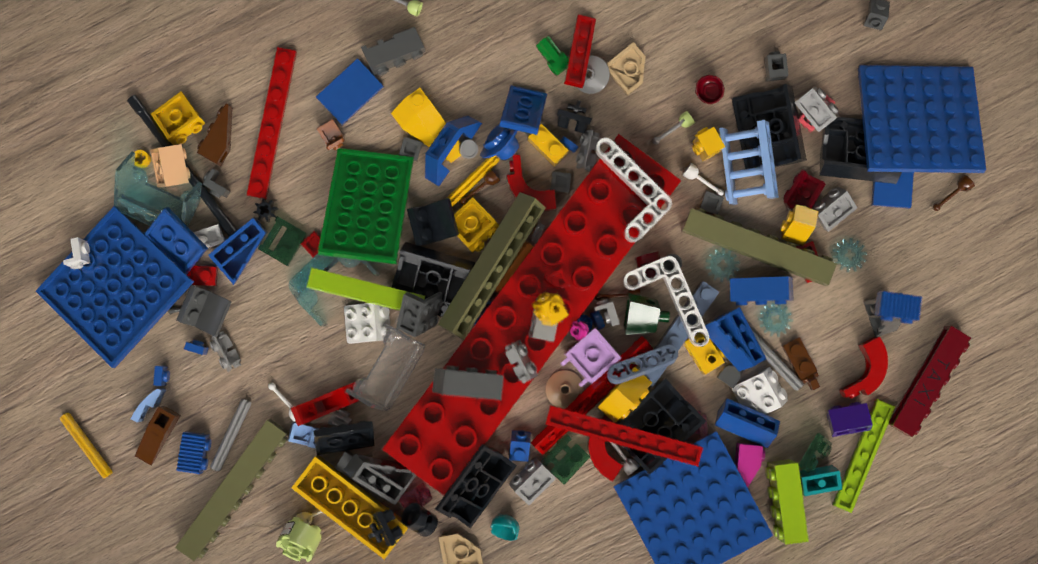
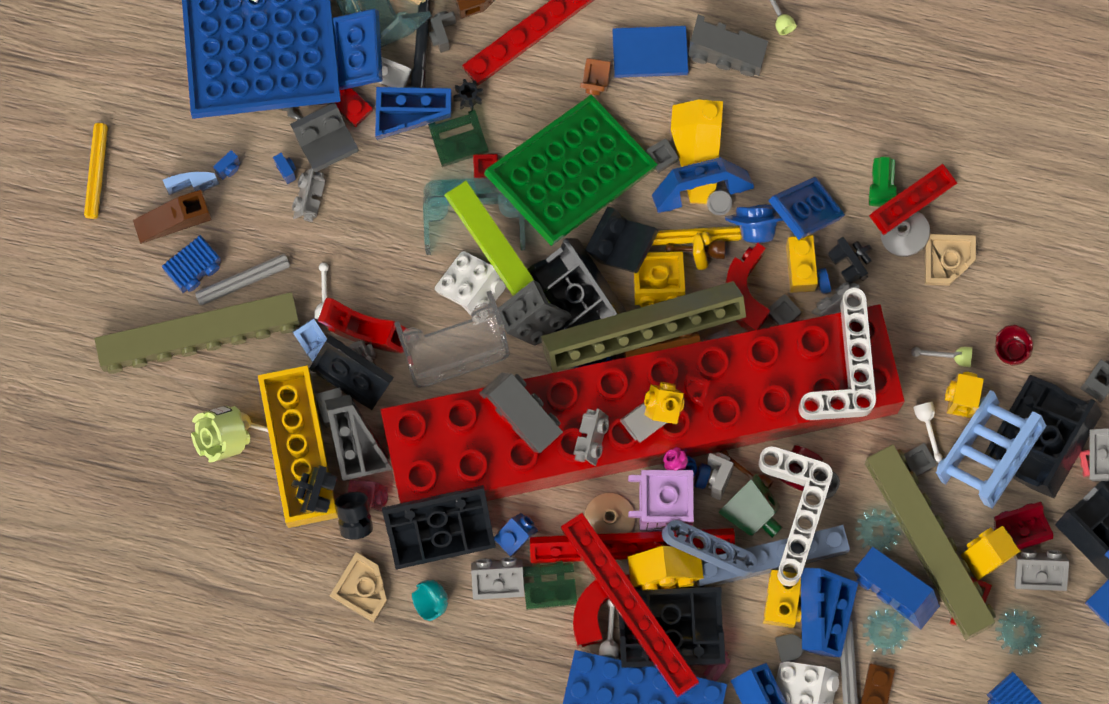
camera: 45 degrees right, 10 degrees down
(482, 189) = (699, 254): none -> yellow arm

